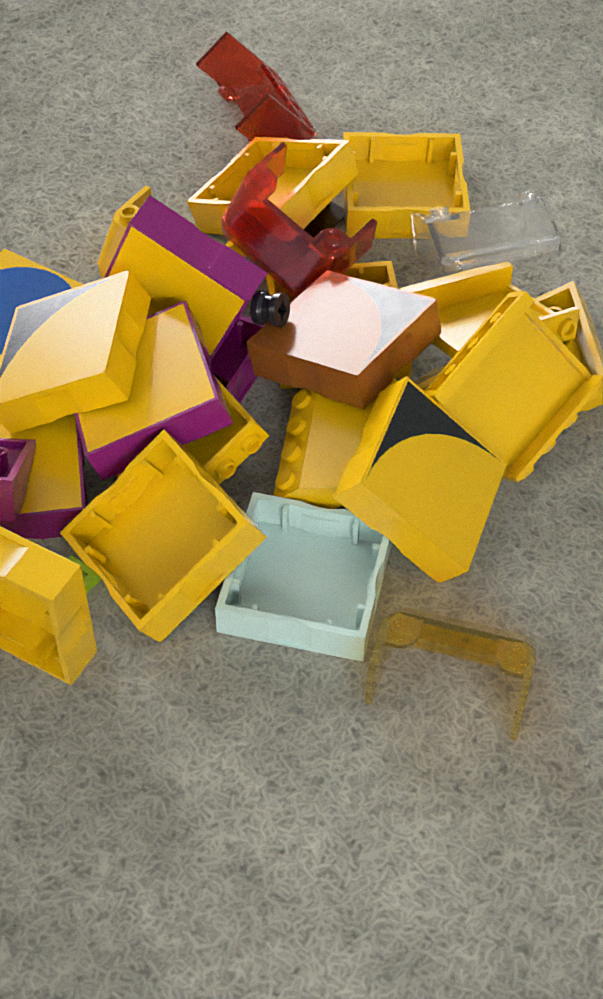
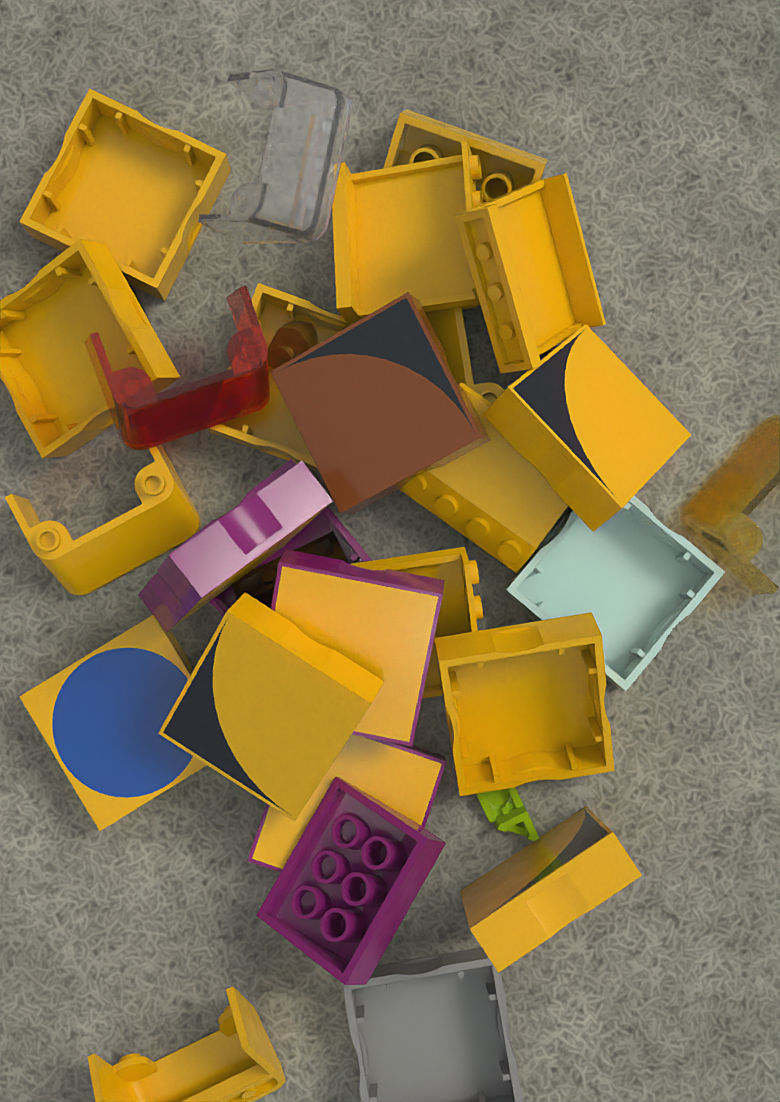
camera: 65 degrees left, 35 degrees up
(270, 308) = (324, 466): black wheel -> none

